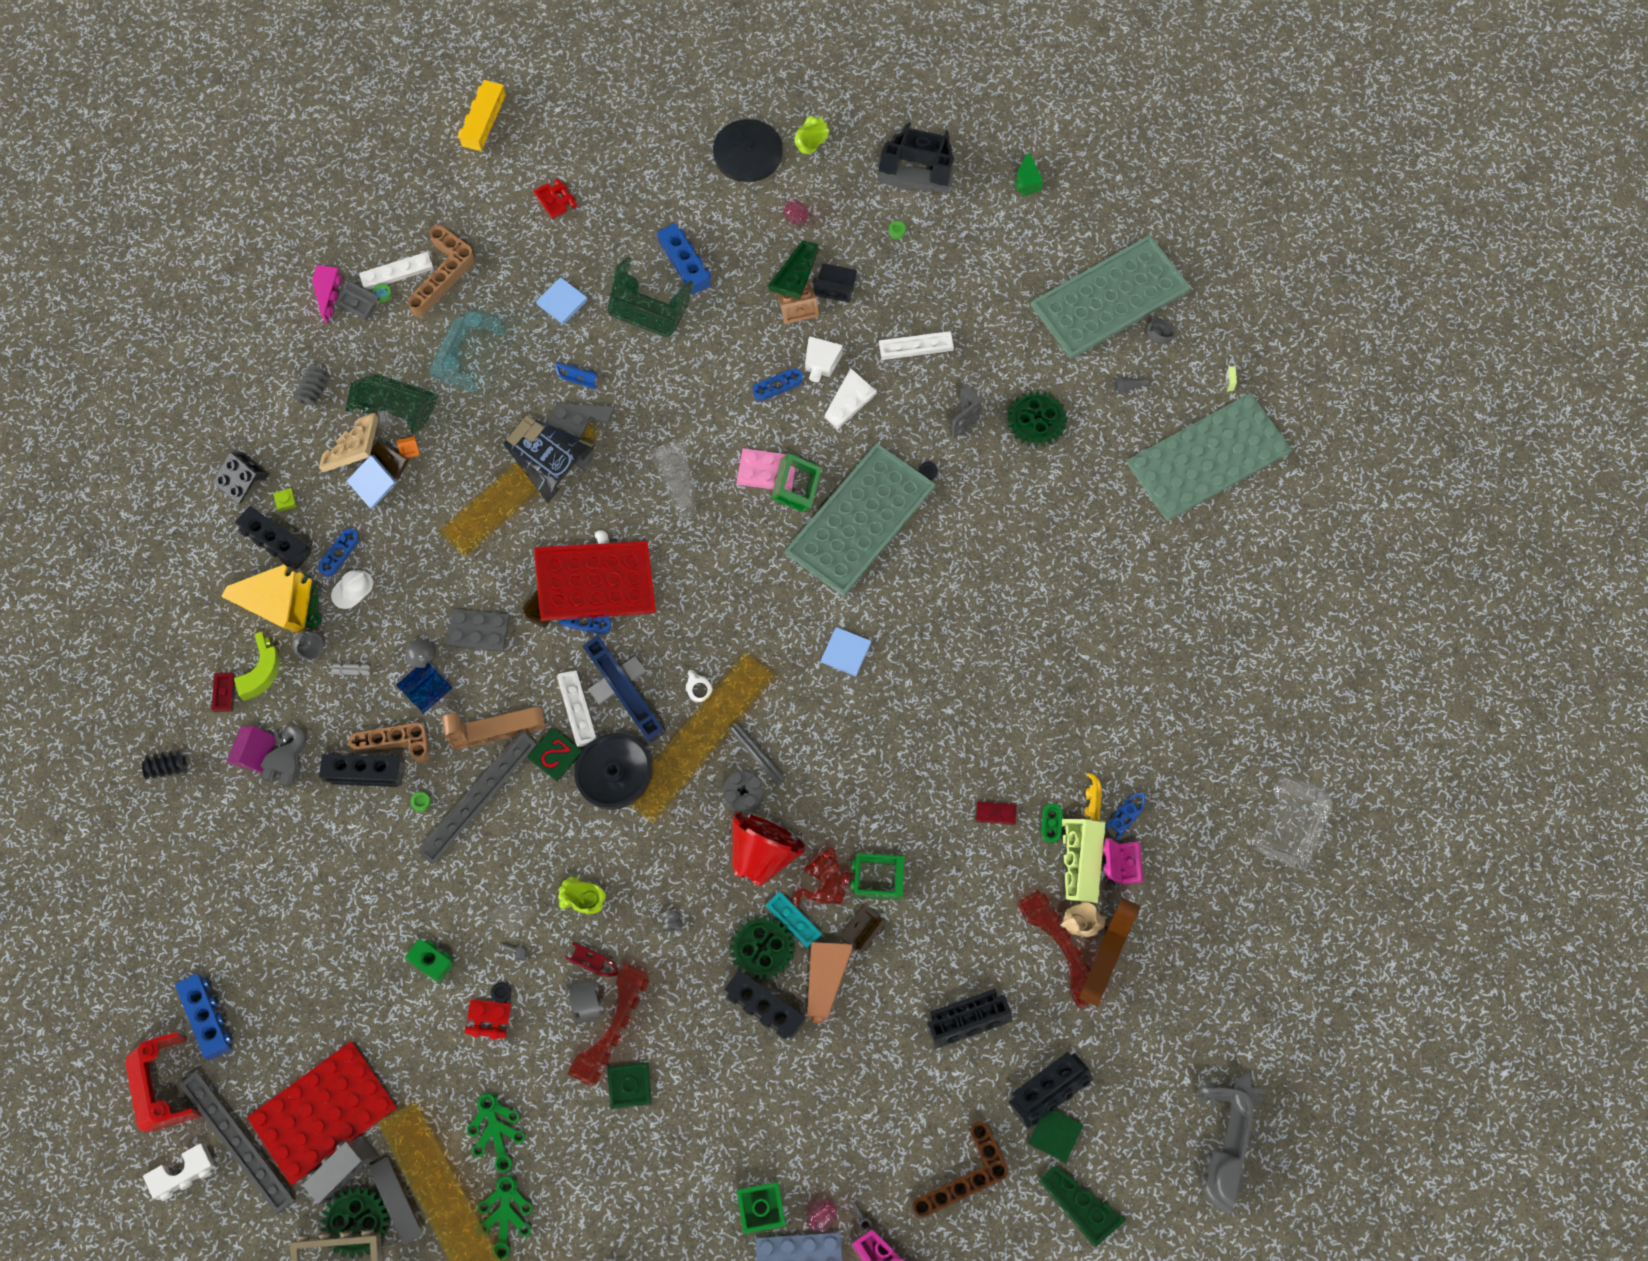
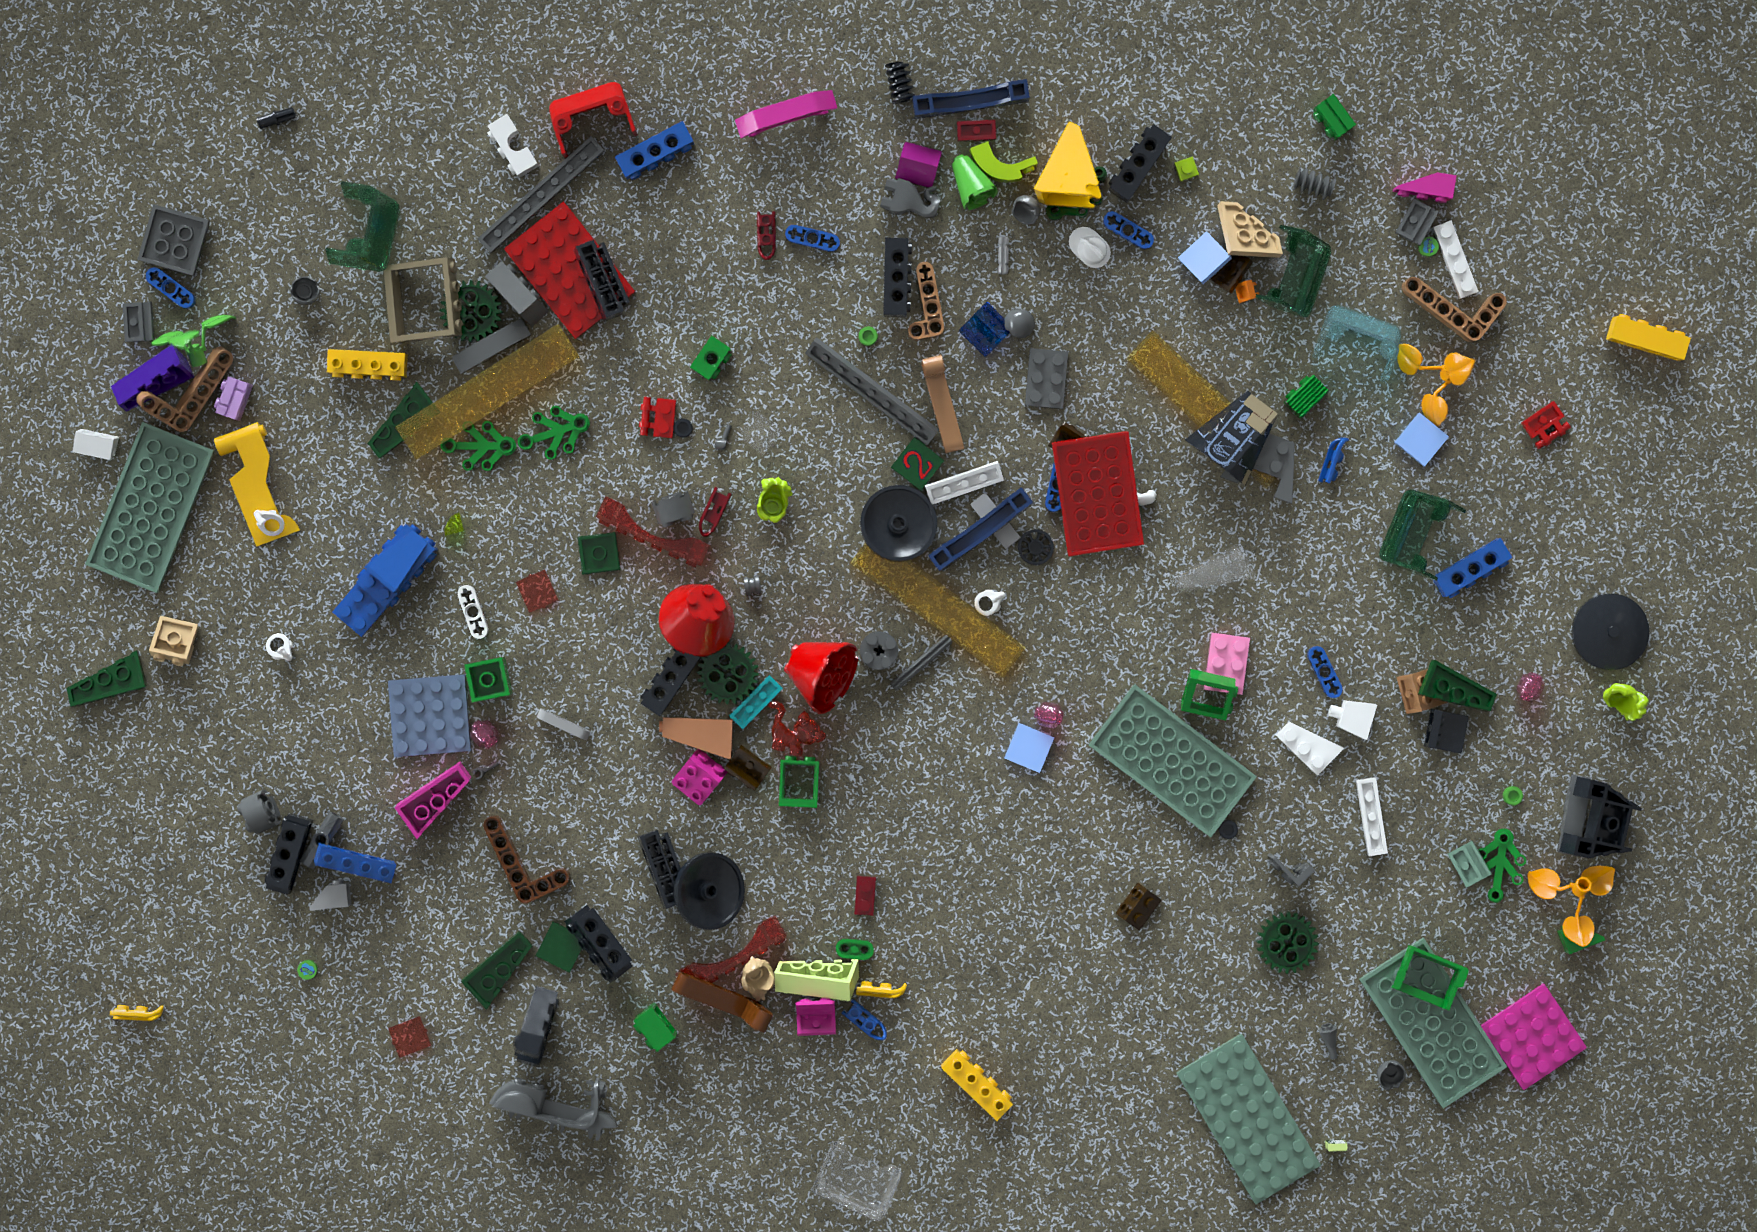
camera: 90 degrees right, 20 degrees up
(179, 879) = (785, 112): none -> dark pink piece
(191, 724) = (956, 102): none -> dark blue arch
(238, 475) = (1211, 119): bracket -> none
(250, 369) = (1333, 117): none -> green brick
(274, 695) = (972, 183): none -> bright green cone
(306, 1088) = (598, 281): none -> black brick
(310, 848) = (808, 231): none -> blue beam
(310, 902) = (766, 239): none -> dark red piece
(495, 259) = (1455, 370): none -> light orange plant
(513, 396) = (1306, 396): none -> green brick
(590, 1247) = (454, 525): none -> clear neon green tile
(645, 642) = (1035, 547): none -> black wheel
(667, 1155) = (537, 591): none -> clear red piece
(669, 1226) = (472, 627): none -> white beam
(701, 976) = (696, 619): none -> red cone
(812, 1127) = (563, 724): none -> light grey beam
(813, 630) = (1049, 715): none -> clear pink head
(872, 980) = (699, 777): none -> dark pink bracket
(959, 239) = (1502, 862): none -> green plant
(960, 263) = (1469, 864): none -> sand green plate
(976, 162) = (1595, 878): none -> light orange plant
(992, 968) = (709, 891): none -> black dish
(1003, 551) = (1138, 906): none -> dark brown bracket
(1069, 271) = (1457, 980): none -> green piece
(1120, 214) = (1533, 1036): none -> dark pink plate
(1138, 1029) = (654, 1027): none -> green brick
(1145, 1157) = (536, 1027): none -> black wedge
(1187, 704) = (976, 1084): none -> yellow brick

